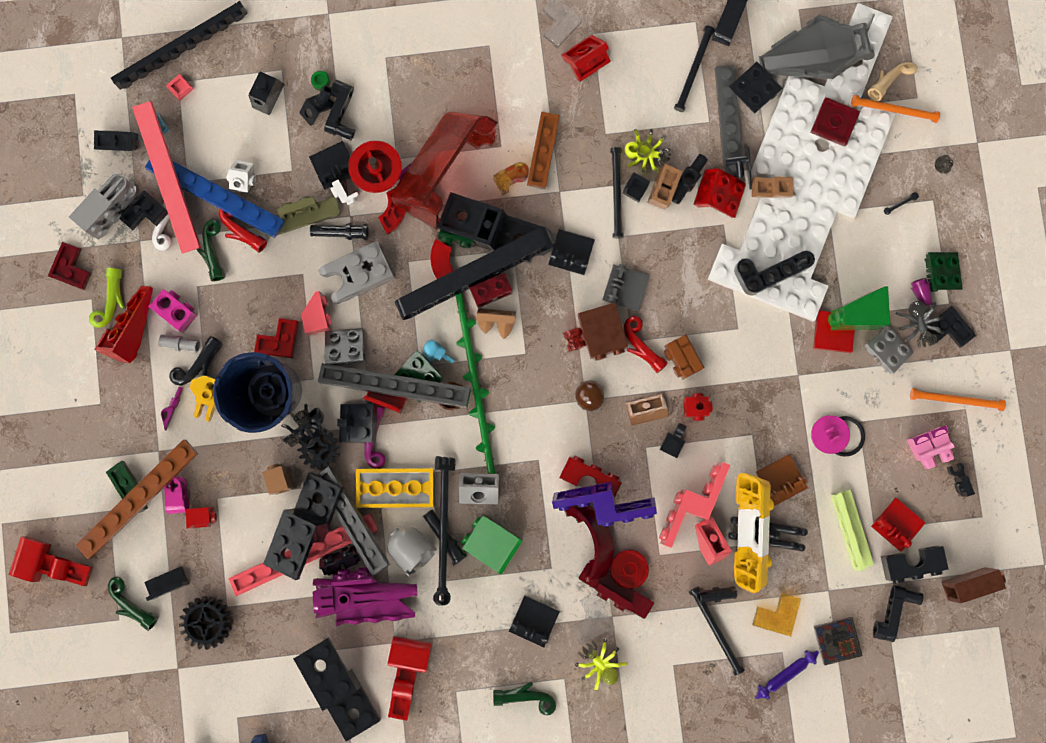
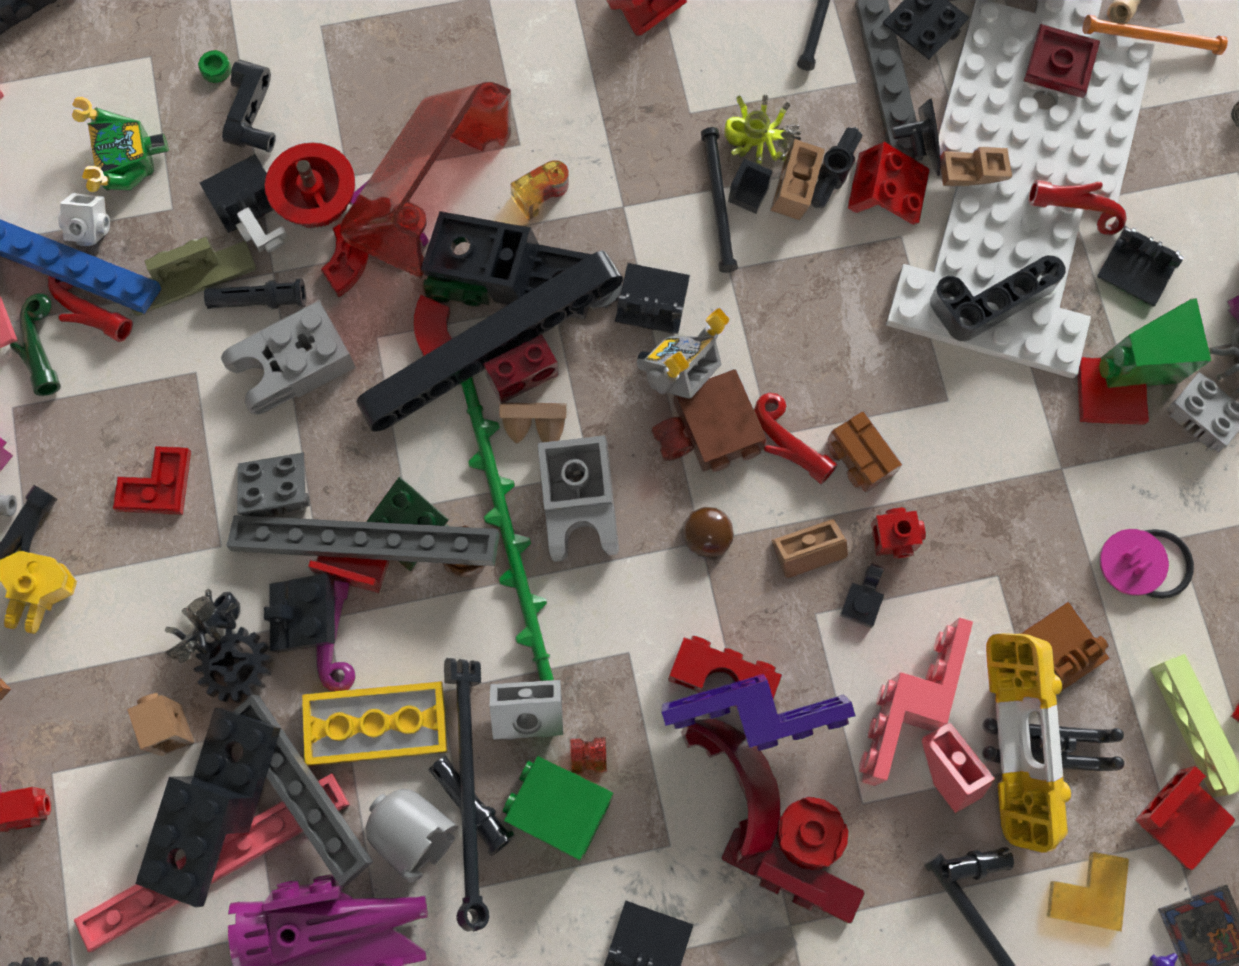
camera: 10 degrees left, 10 degrees down
(243, 392) = (92, 557): dark blue cone -> none
(262, 132) = (119, 148): none -> torso
(265, 90) = (122, 83): black torso -> none
(315, 316) = (218, 435): coral slope -> none
(317, 104) = (210, 99): black bracket -> none
(331, 562) = (265, 871): black hinge -> none
(434, 350) = (432, 479): medium azure piece -> none
(515, 518) = (597, 755): none -> clear red wheel
(521, 374) = (577, 503): none -> light grey brick
(543, 150) = (590, 143): dark orange plate -> none
(585, 296) = (684, 362): none -> light grey torso
(625, 287) = (752, 347): dark grey hinge -> none
(833, 213) = (1079, 197): none -> red plant
(835, 580) = (1185, 818): none -> red bracket
(863, 256) = (1140, 265): none -> black hinge
(914, 196) = (1206, 168): black hinge -> none

